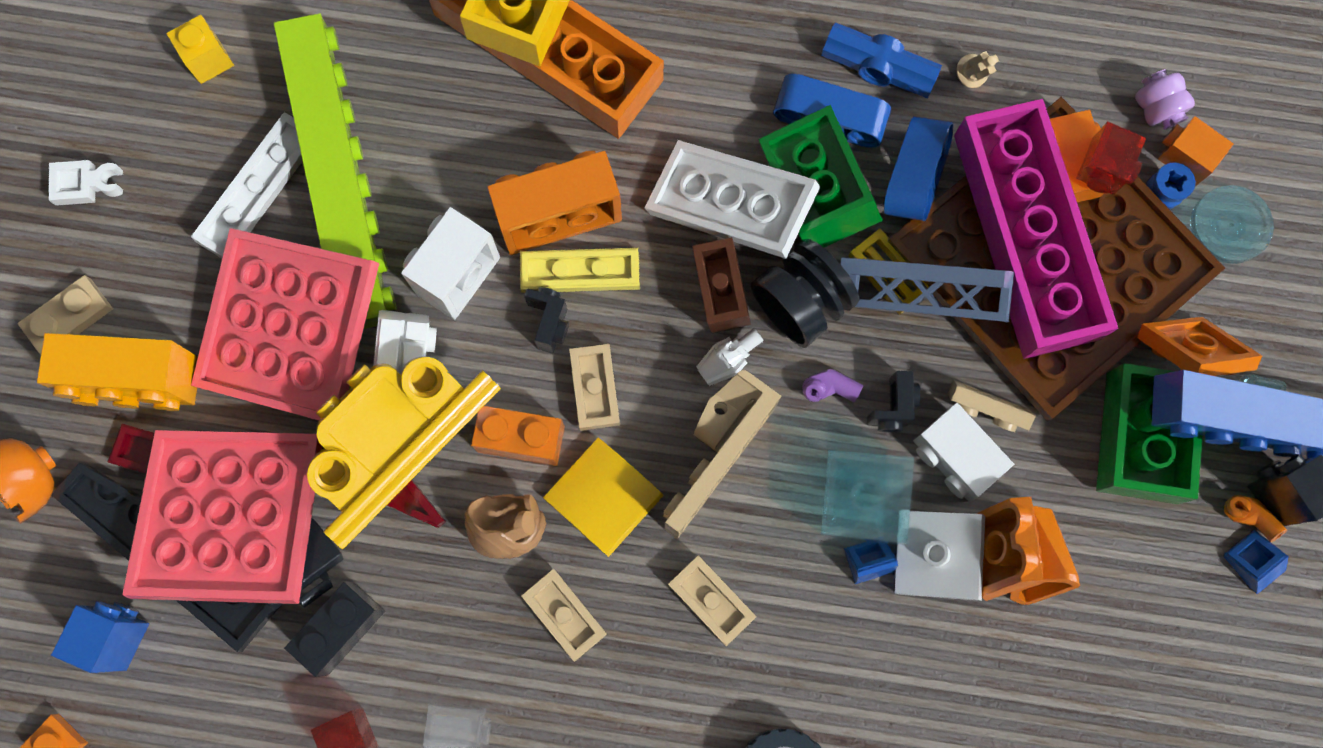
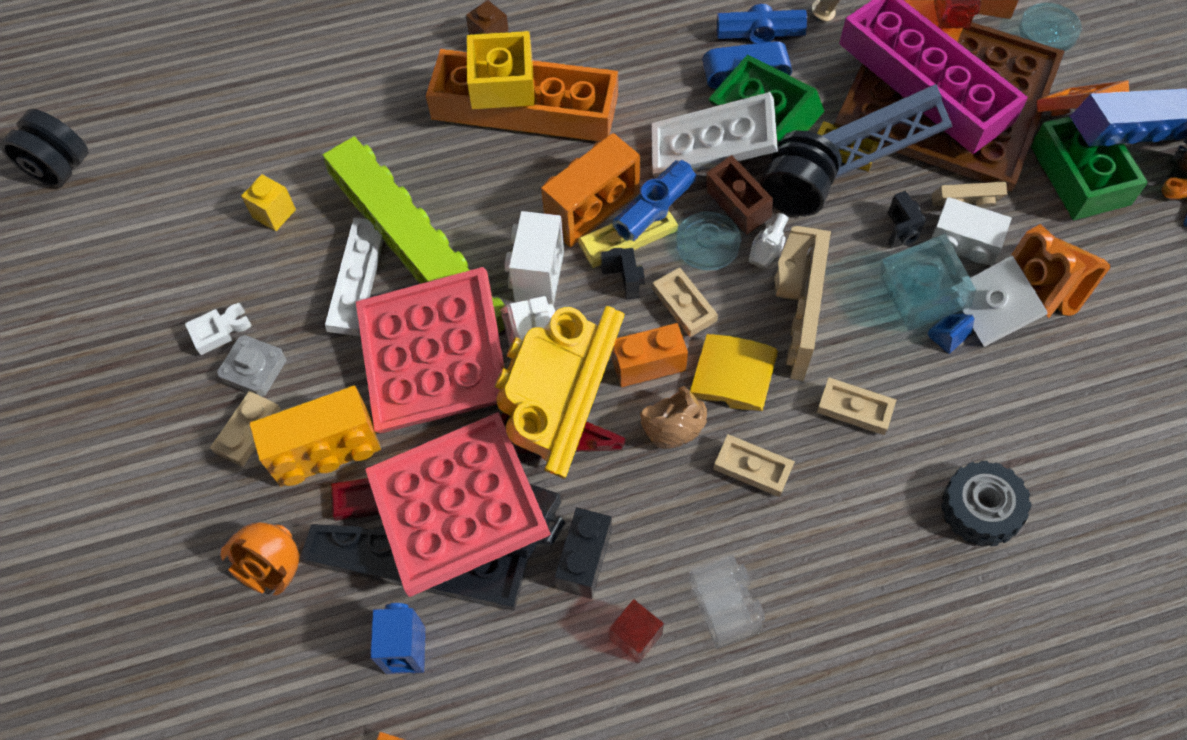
camera: 20 degrees left, 15 degrees down
(102, 244) = (252, 365): none -> piece
(645, 237) = (645, 210): none -> blue piece
(662, 337) = (708, 240): none -> clear light blue piece
(829, 383) = (850, 229): medium lavender arm -> none
(918, 168) = (828, 72): blue beam -> none
(1172, 194) = (998, 16): blue wheel -> none

